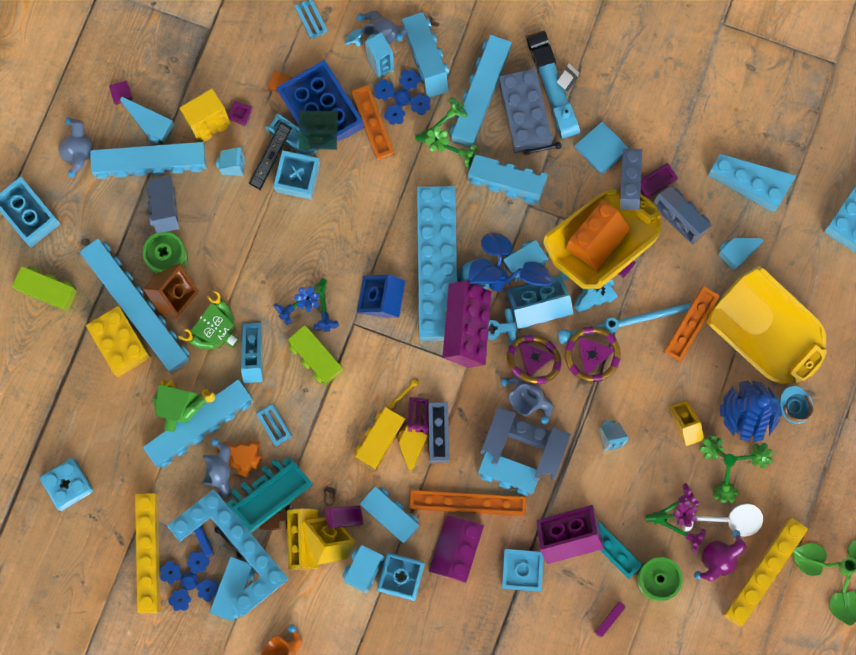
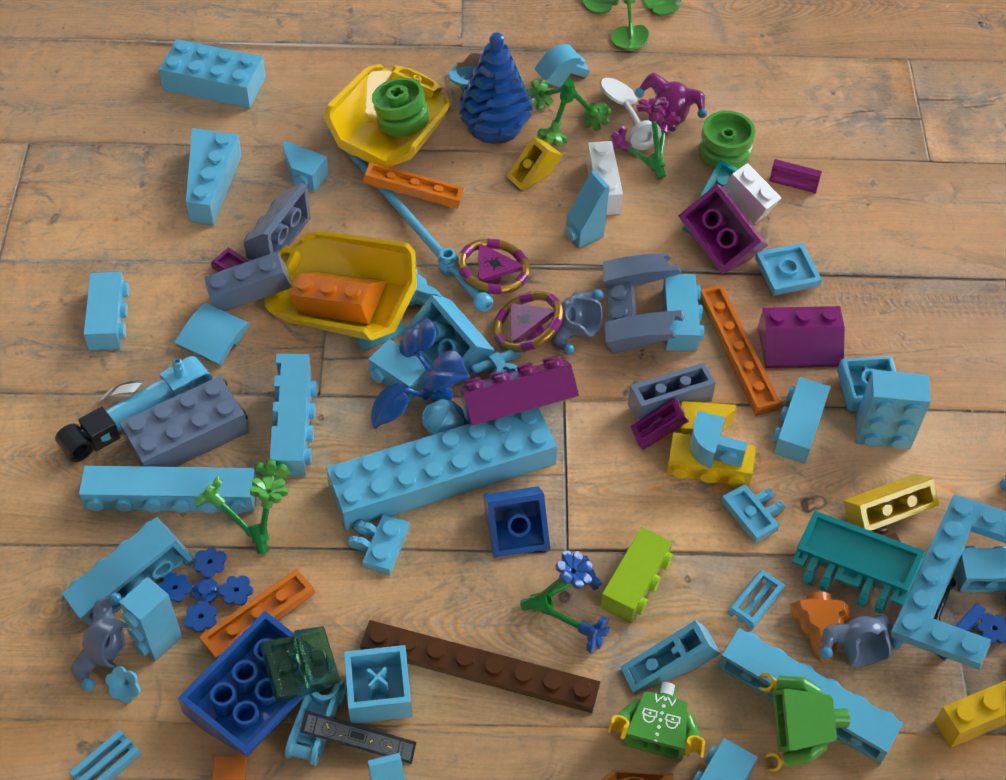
camera: 115 degrees left, 25 degrees down
(292, 241) = (486, 667): none -> reddish brown plate
(326, 544) = (878, 468): yellow slope -> none
(333, 447) = (750, 512): none -> medium azure hinge
(344, 516) = (835, 464): magenta tile -> none
(384, 432) = (709, 445): none -> medium azure brick
(391, 405) = (657, 467): yellow hinge -> none
(396, 212) = (385, 543): none -> medium azure hinge
(597, 571) = (751, 193): none -> white brick
(643, 83) = (106, 311): none -> medium azure brick
(654, 469) = (602, 160): none -> white brick
(765, 572) = (669, 61): yellow brick -> none
(767, 334) = (400, 107): none -> bright green wheel
(787, 484) = (560, 63): none -> medium azure brick

